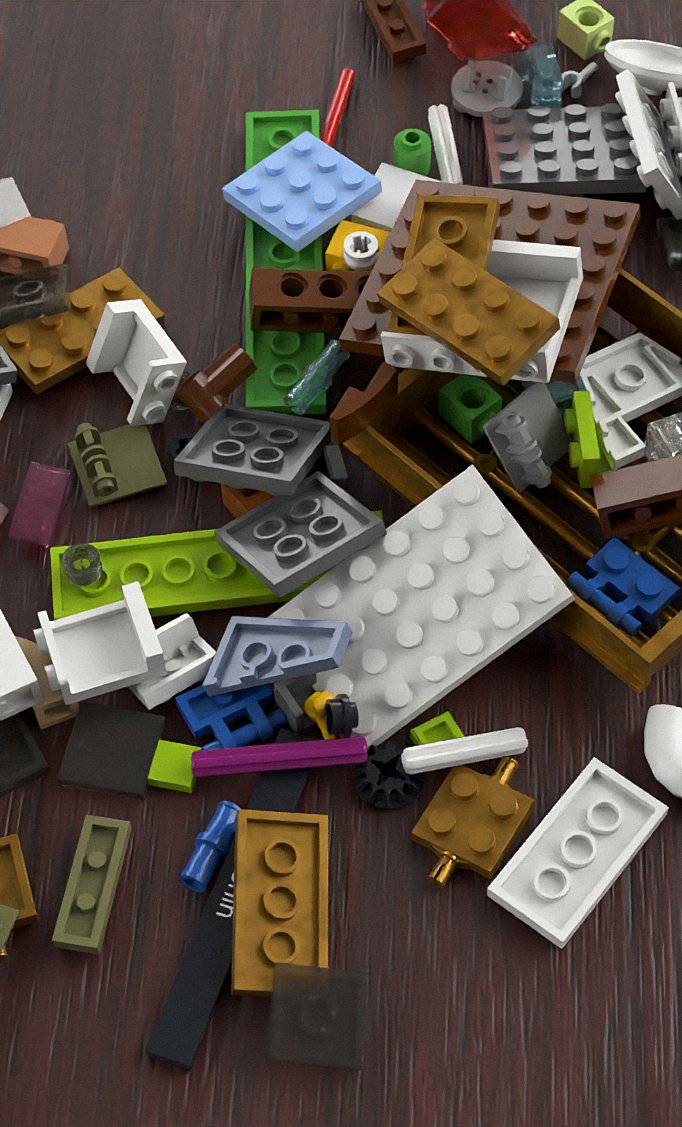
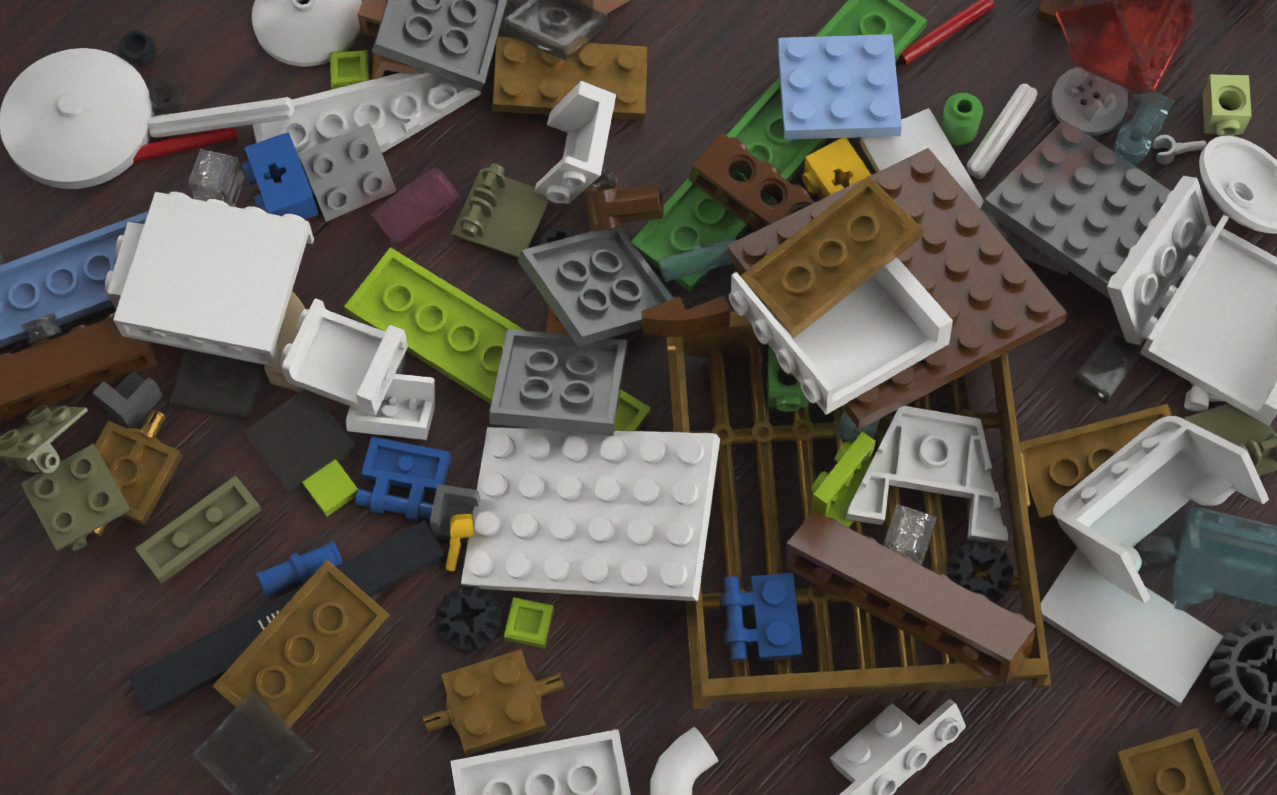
camera: 40 degrees right, 10 degrees up
(82, 576) = (384, 277): clear smoke bush -> none
(274, 650) = (459, 459): sand blue wing -> none
(279, 756) = (399, 542): magenta axle -> none
(332, 466) = (641, 352): dark grey tile -> none
(341, 716) = (462, 548): black plate -> none
(359, 260) = (829, 165): white bush -> none
(464, 750) = (531, 646): white axle -> none
(469, 311) = (805, 309): pearl gold plate -> none
(529, 437) = (800, 441): light grey hinge -> none

